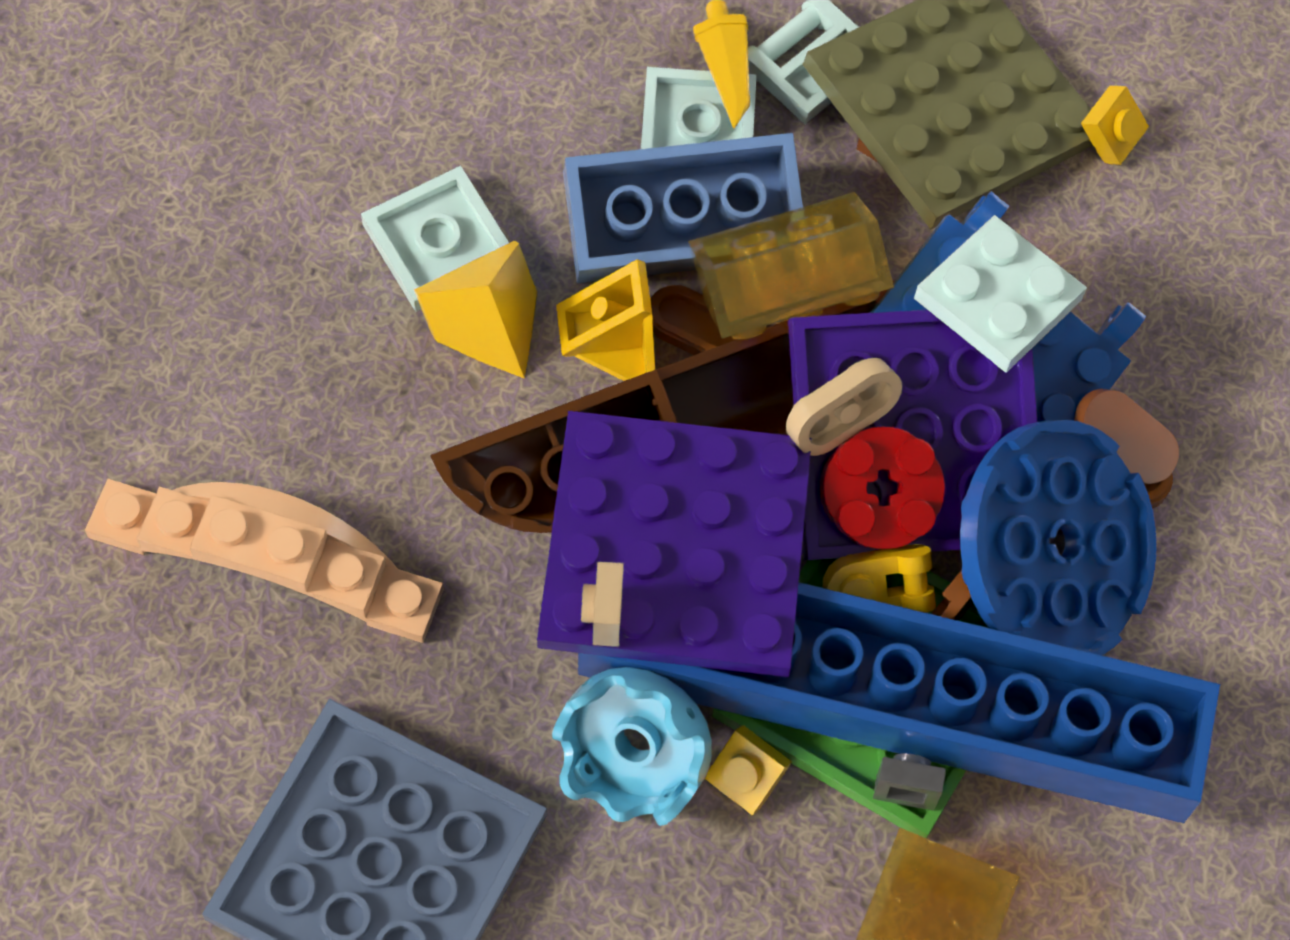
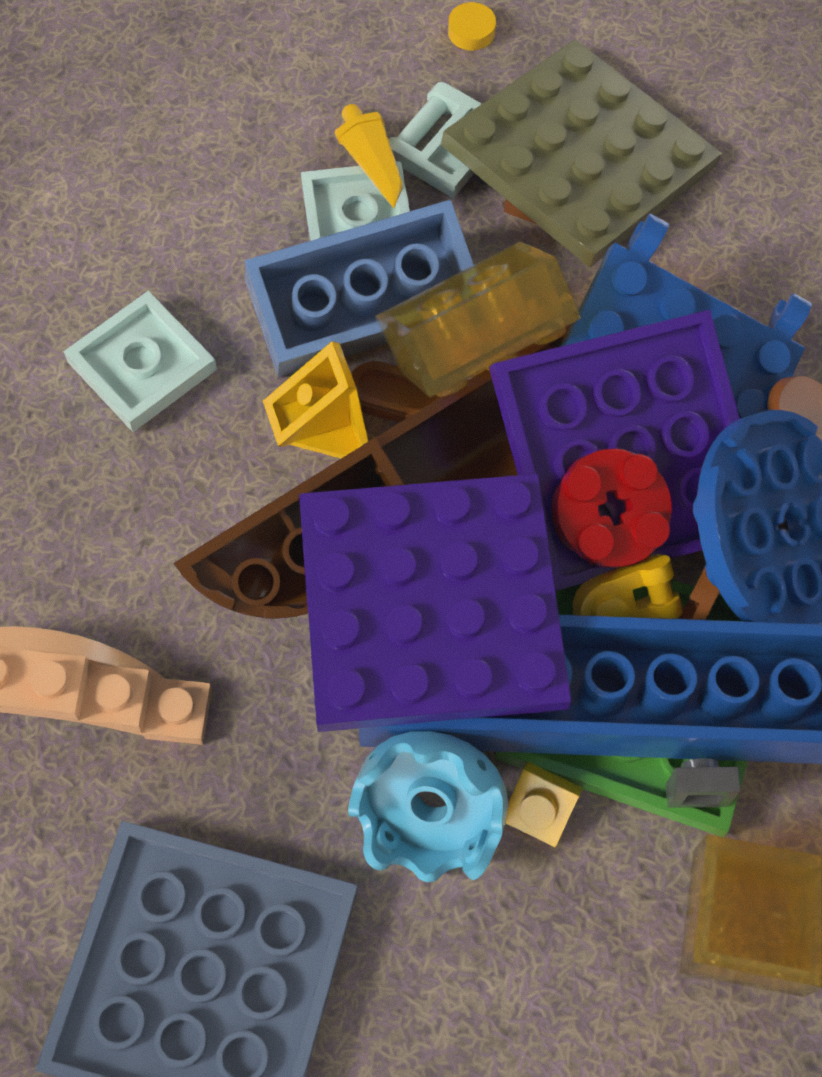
camera: 10 degrees left, 0 degrees up
(485, 309) = (197, 417): yellow slope -> none
(603, 604) = (377, 676): tan plate -> none
(843, 406) = (562, 437): tan plate -> none
(1000, 293) = (682, 304): light aqua plate -> none
(1115, 125) = (728, 147): yellow plate -> none

